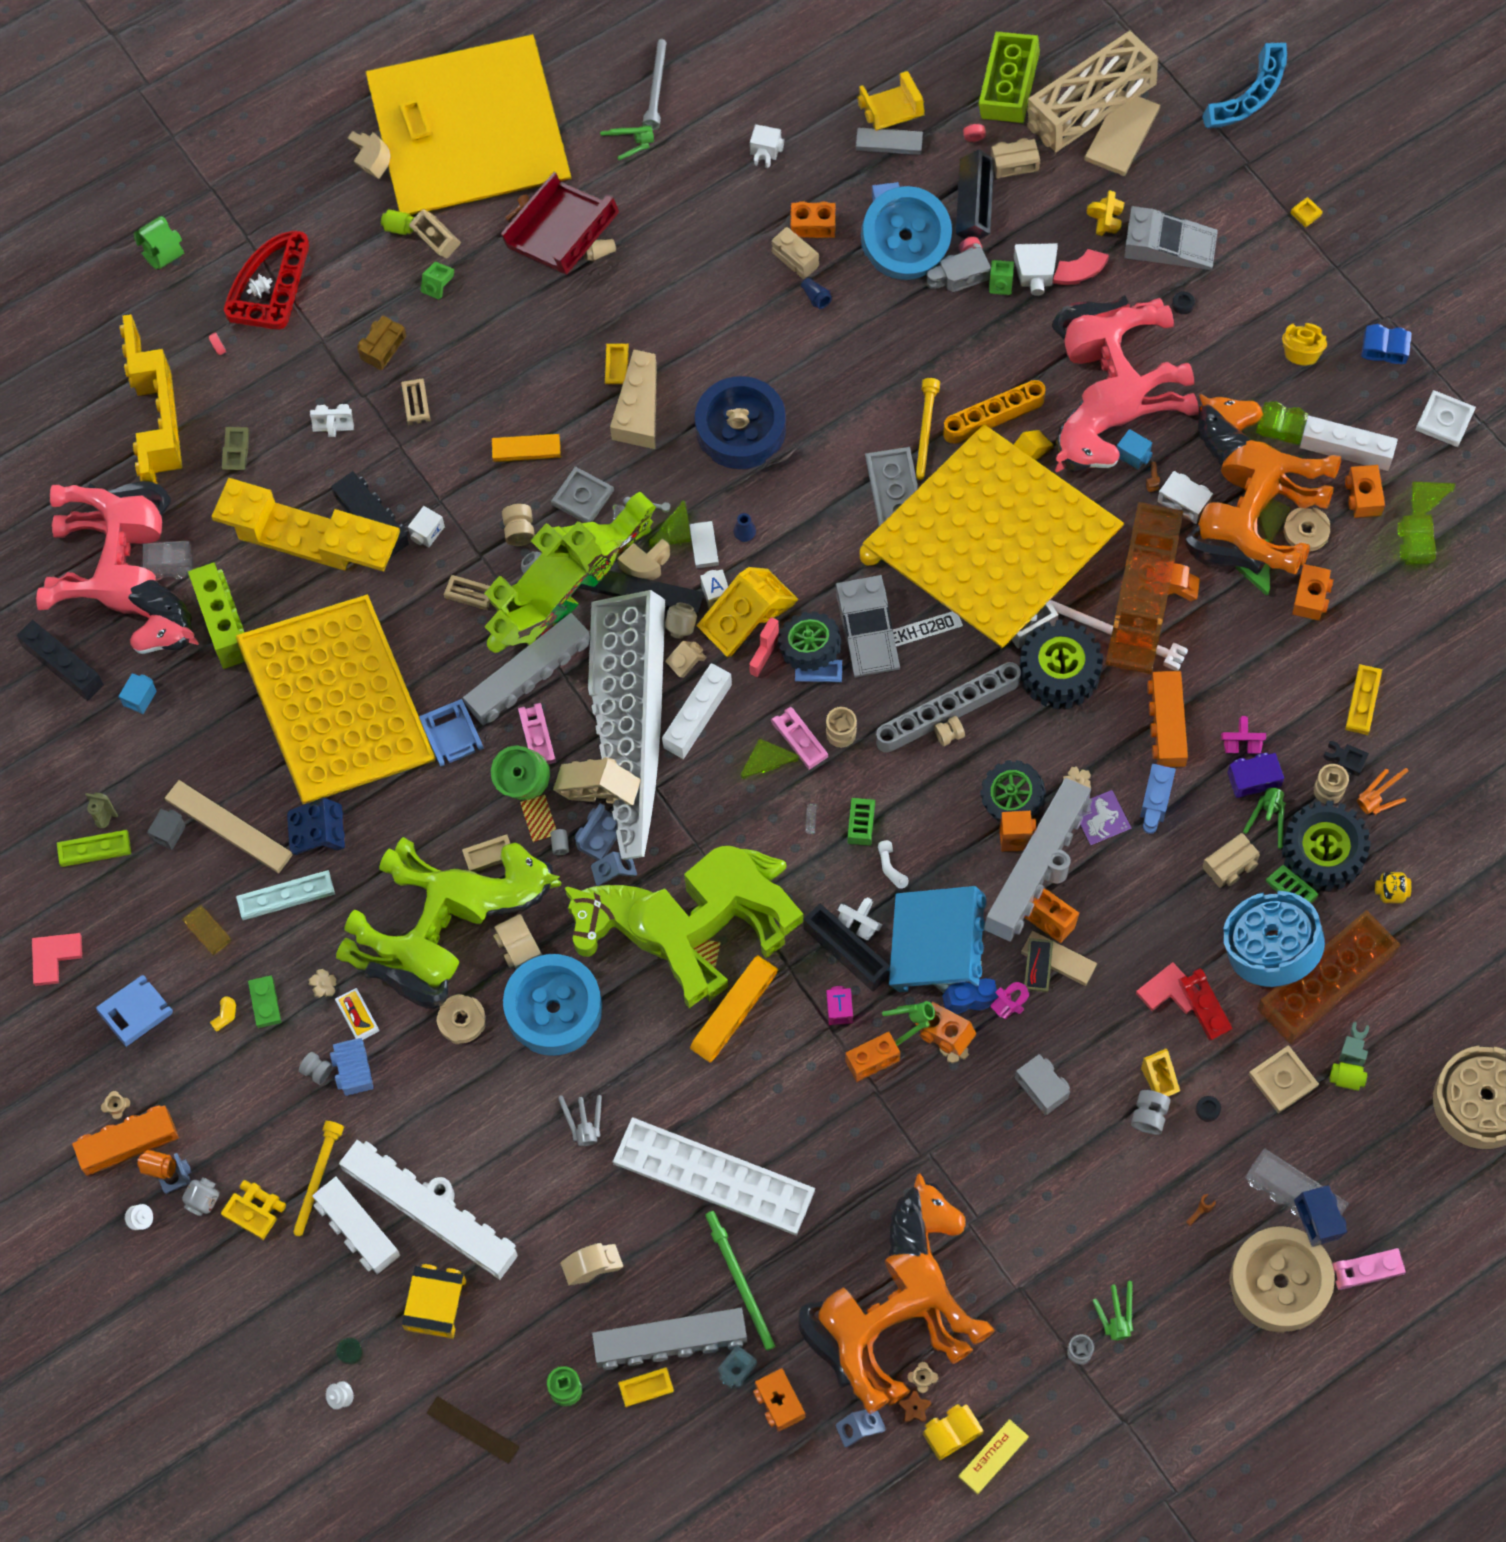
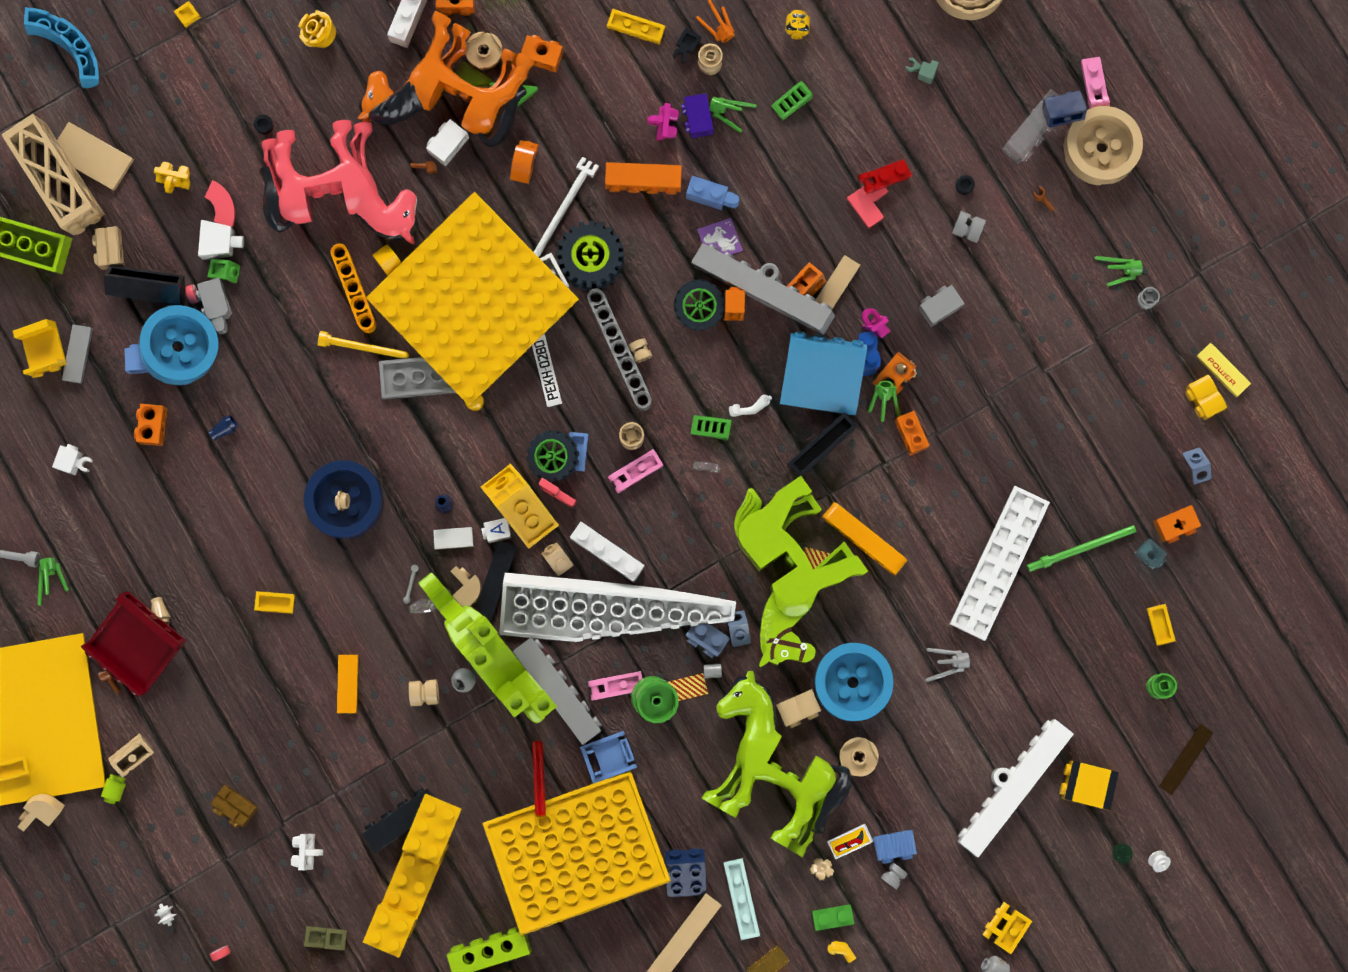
camera: 90 degrees left, 15 degrees up
(270, 311) = (191, 906): red beam -> none
(331, 1133) = (947, 863): yellow piece -> none
(355, 1225) = (1026, 845): white brick -> none
(418, 417) = (309, 777): tan tile -> none
(422, 654) = (539, 784): none -> red axle
(426, 527) = (418, 772): white brick -> none
(435, 279) = (174, 756): bright green bracket -> none
(464, 599) = (487, 740): tan tile -> none
(485, 854) = (717, 730): tan tile -> none
(582, 495) = (397, 638): light grey tile -> none
(591, 1261) = (1066, 661): tan brick -> none
(596, 780) = (669, 637): tan wedge -> none
(636, 408) = (322, 586): tan wedge -> none
(669, 1338) = (1125, 604): light grey brick -> none
(675, 528) = (436, 561): clear neon green tile -> none
(680, 620) = (524, 560): dark tan head -> none
(766, 758) = (650, 499): clear neon green tile -> none
(795, 253) = (183, 442): tan brick -> none
(839, 1005) = (867, 455): dark pink brick -> none
(847, 1335) = (1134, 469): orange animal -> none
(867, 626) = (541, 408): light grey slope -> none
(868, 925) = (794, 433): white hips -> none
(915, 1400) = (1180, 424): dark orange plate -> none
(930, 1377) = (1157, 416): tan plate -> none
(974, 132) = (79, 280): coral tile -> none
(1038, 965) = (843, 299): black slope -> none
(1081, 778) = (686, 254): tan plant -> none
(1134, 449) = (400, 178): dark azure brick -> none
(1144, 588) = (527, 178): clear orange bracket -> none
(1160, 1073) = (938, 216): yellow slope -> none
(1169, 239) = (203, 129): light grey slope -> none
(1231, 861) = (767, 143): tan brick -> none
(1279, 957) = (859, 119): dark azure brick -> none
(1282, 422) = (386, 57): clear neon green brick -> none
(1283, 1079) = (946, 126): tan plate -> none
(1343, 967) = (870, 81): clear orange brick -> none
(1344, 839) = (763, 52): black wheel -> none
(1348, 1076) = (947, 78): lime brick -> none

